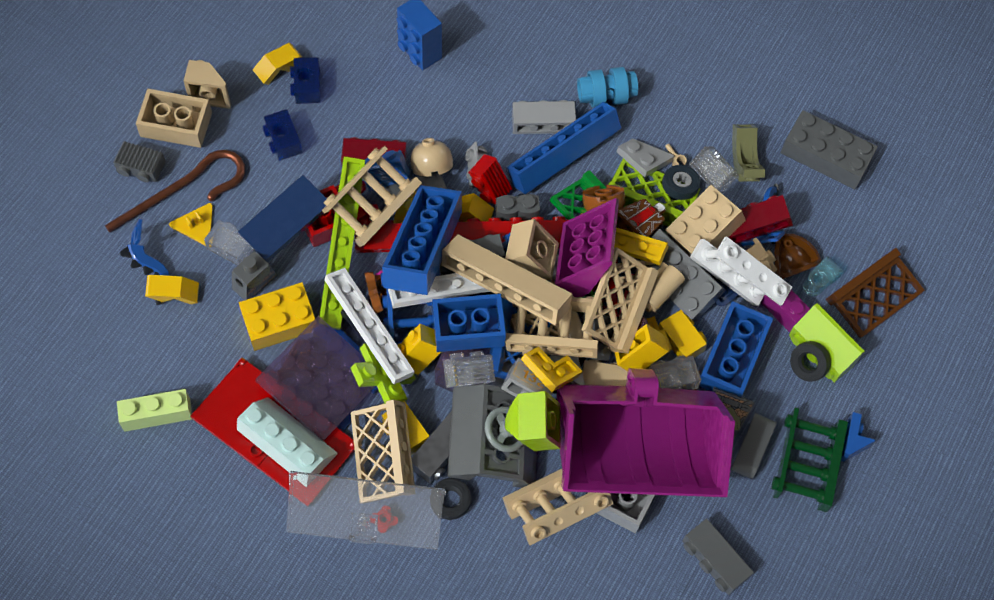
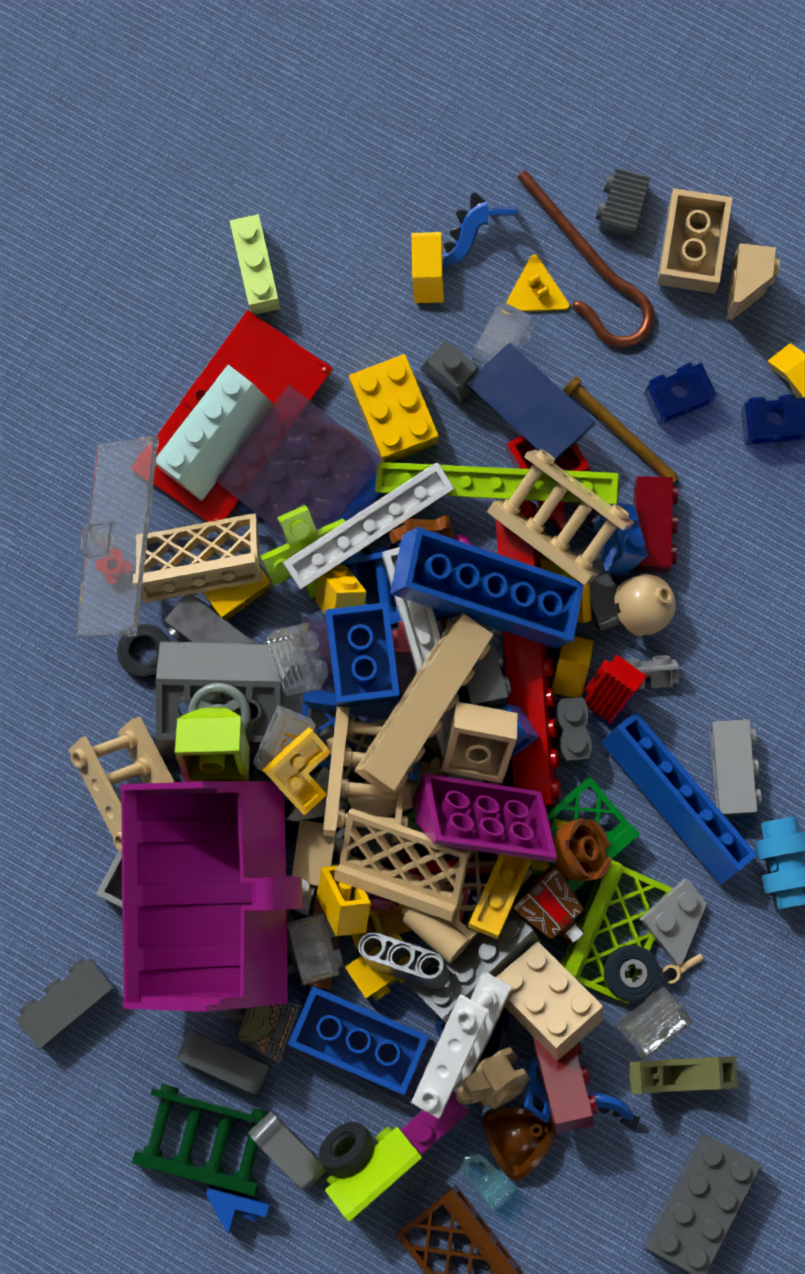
camera: 95 degrees right, 15 degrees up
(308, 171) = (618, 428): none -> pearl gold bar
(681, 300) = (394, 950): none -> dark grey beam
(815, 398) = (287, 1151): none -> dark grey beam

